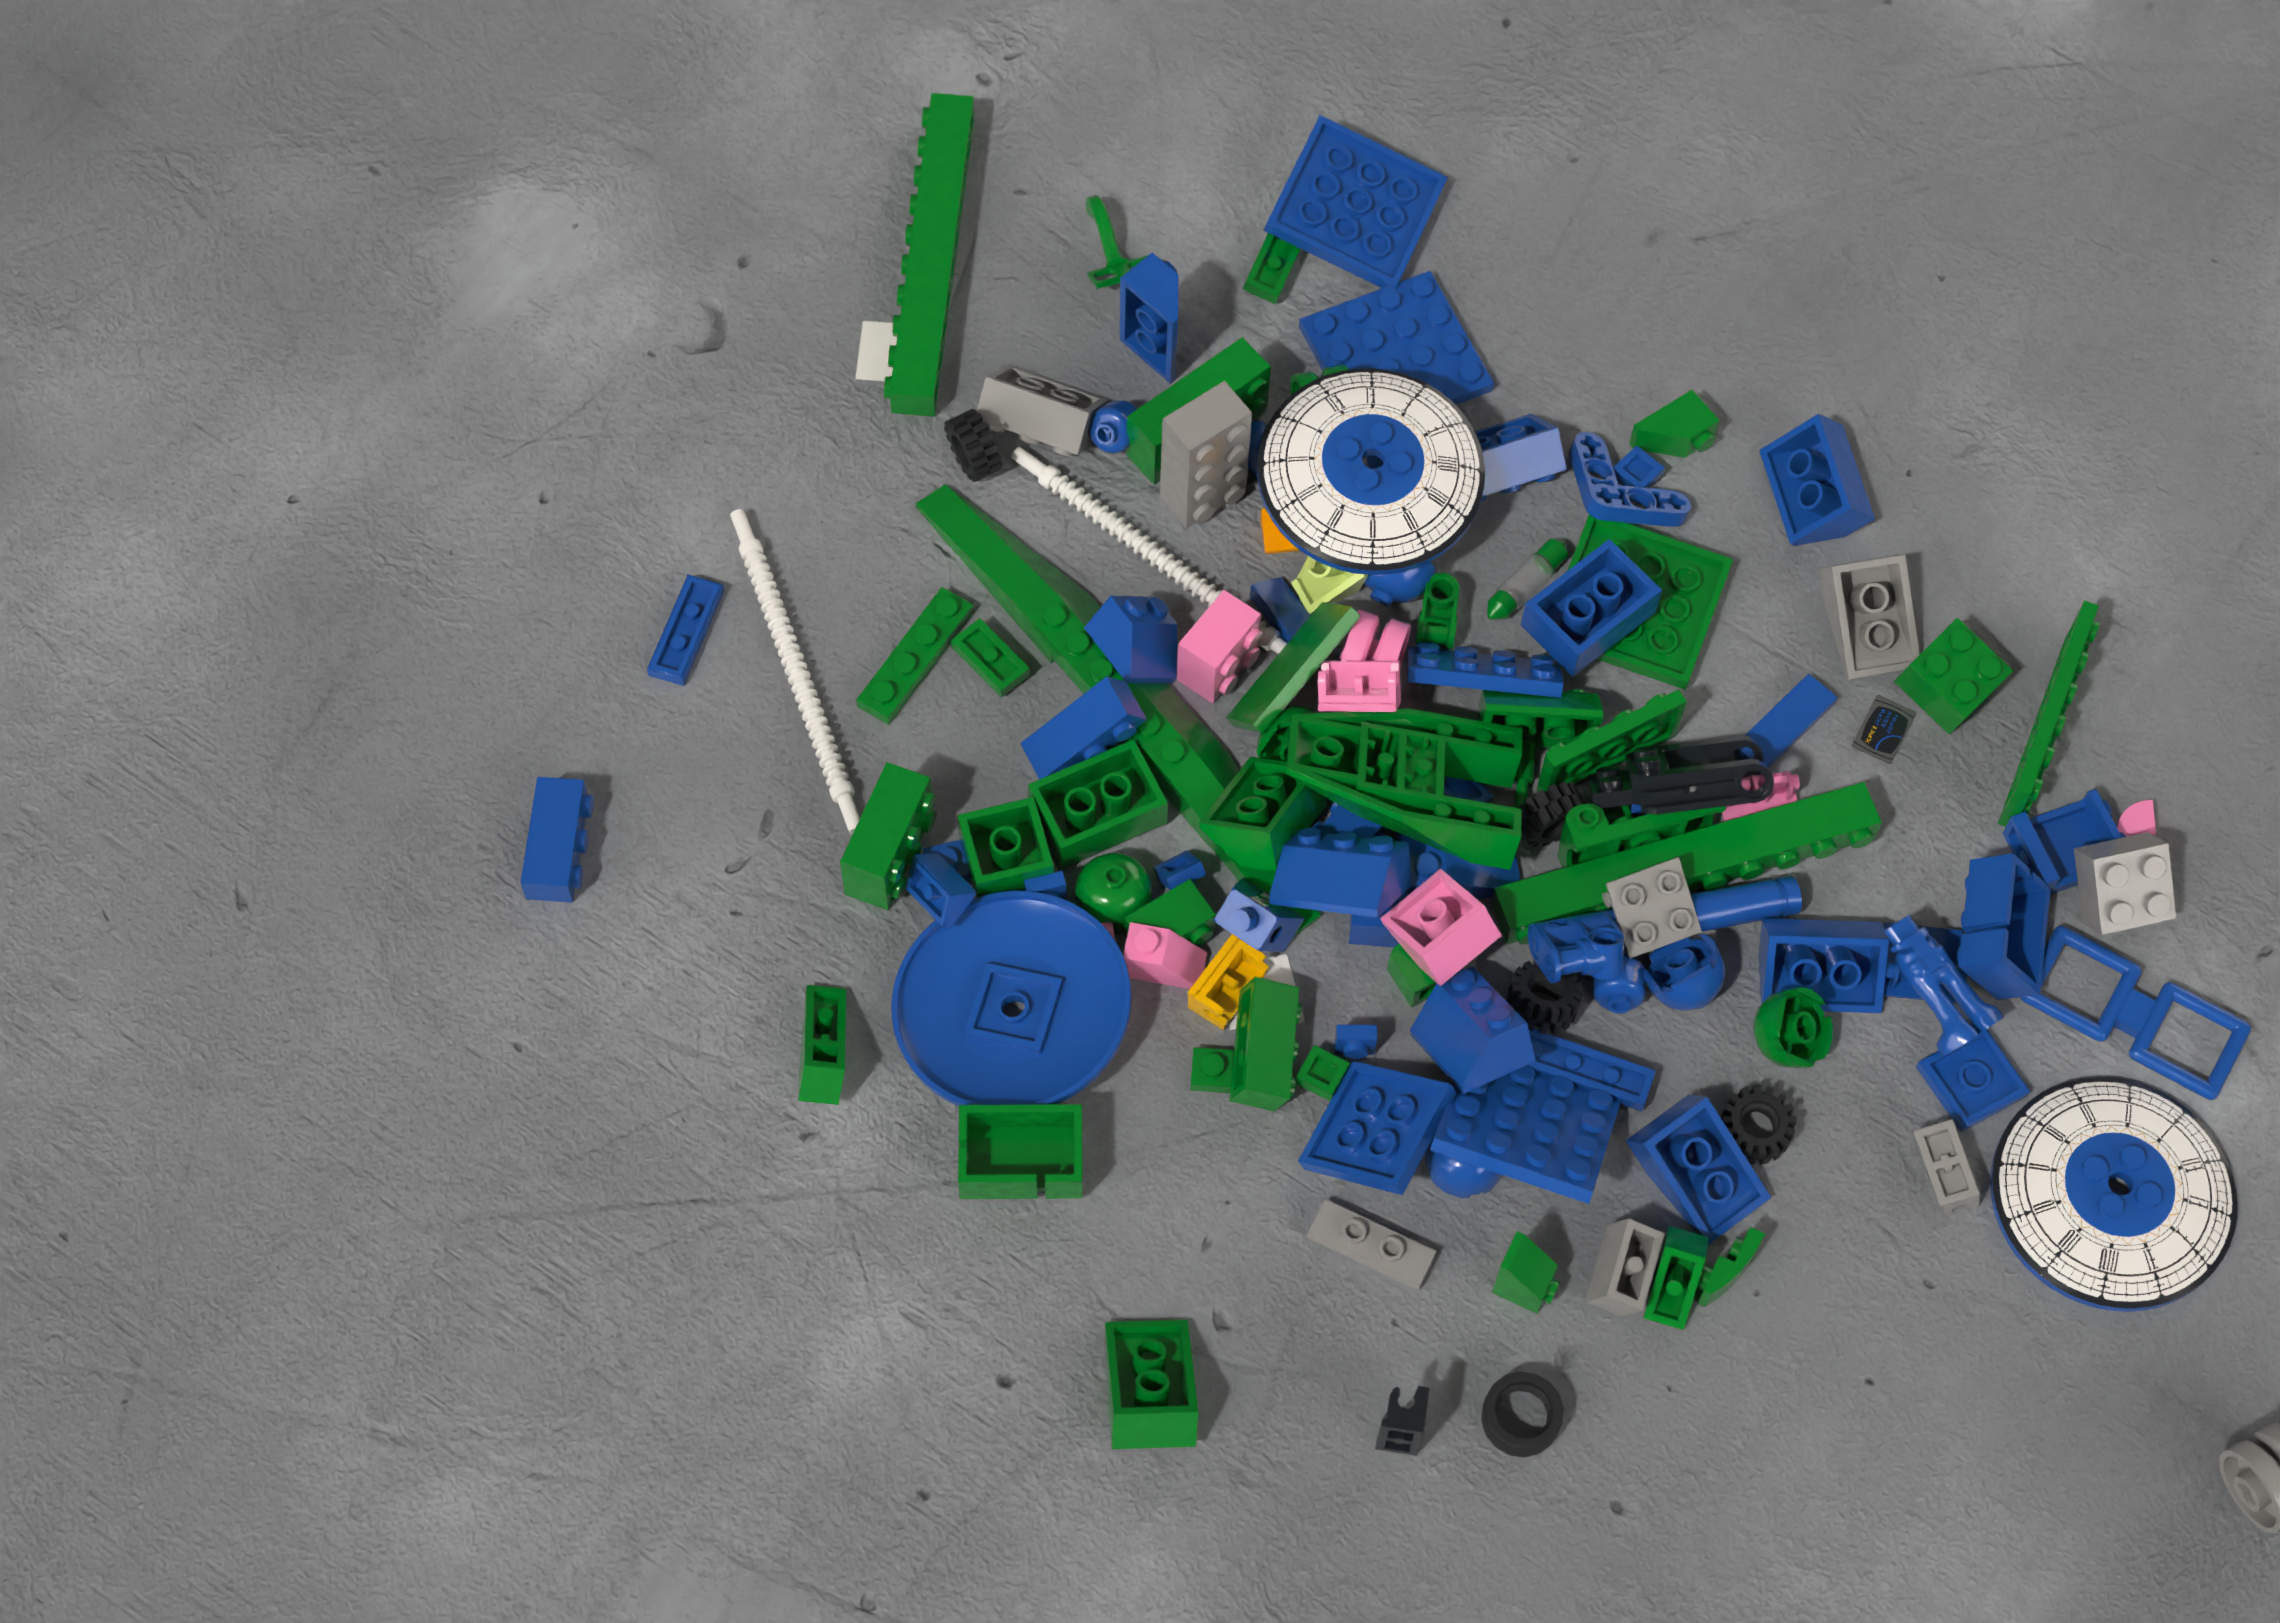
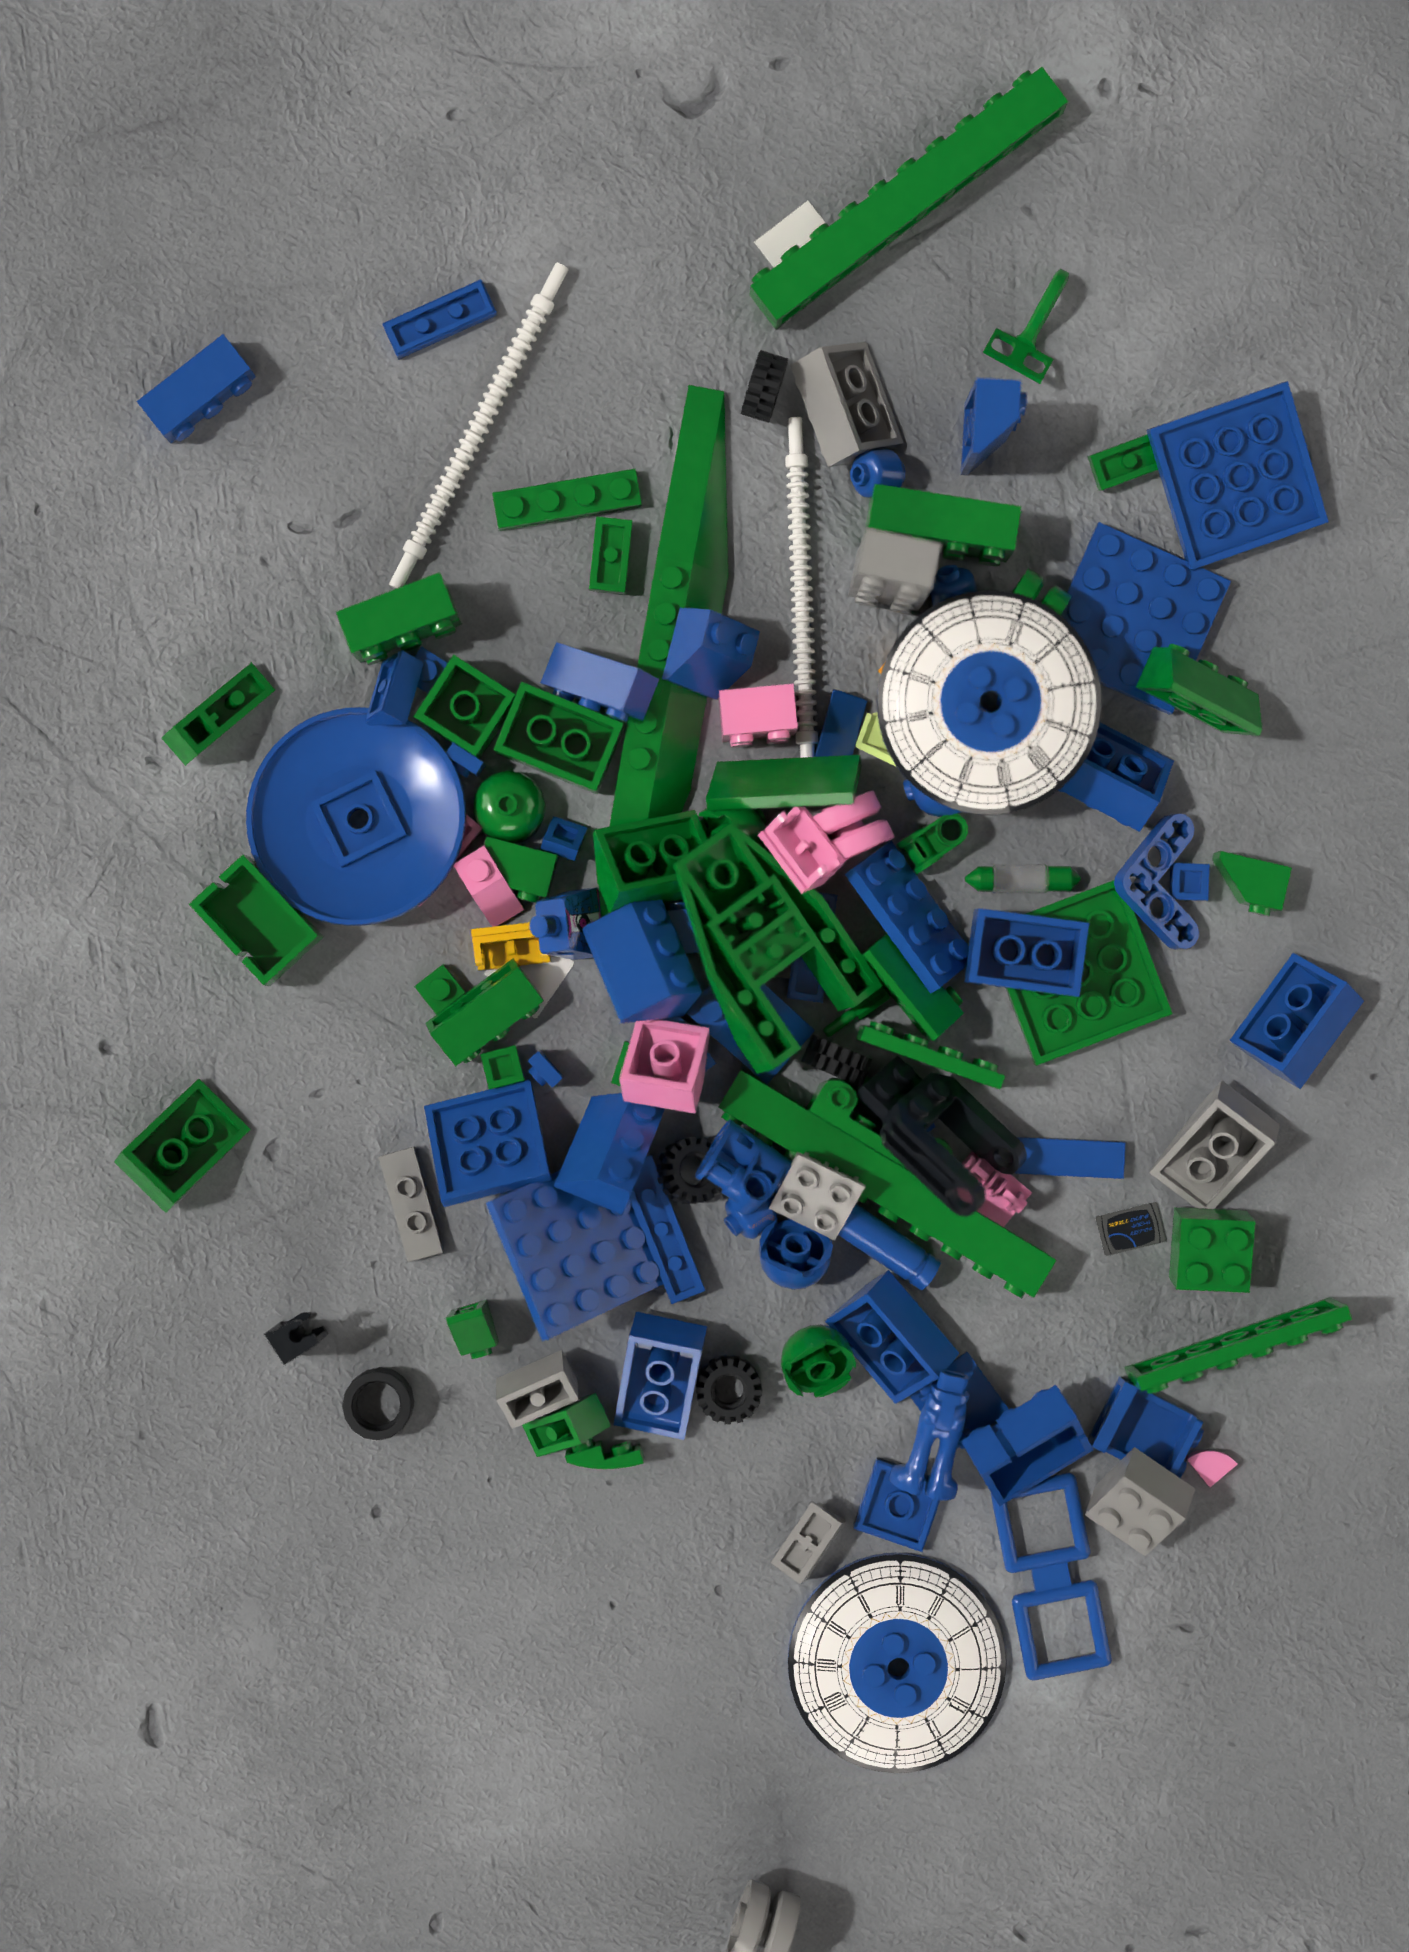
camera: 45 degrees right, 25 degrees up
(1498, 344) = (1201, 691): none -> green slope

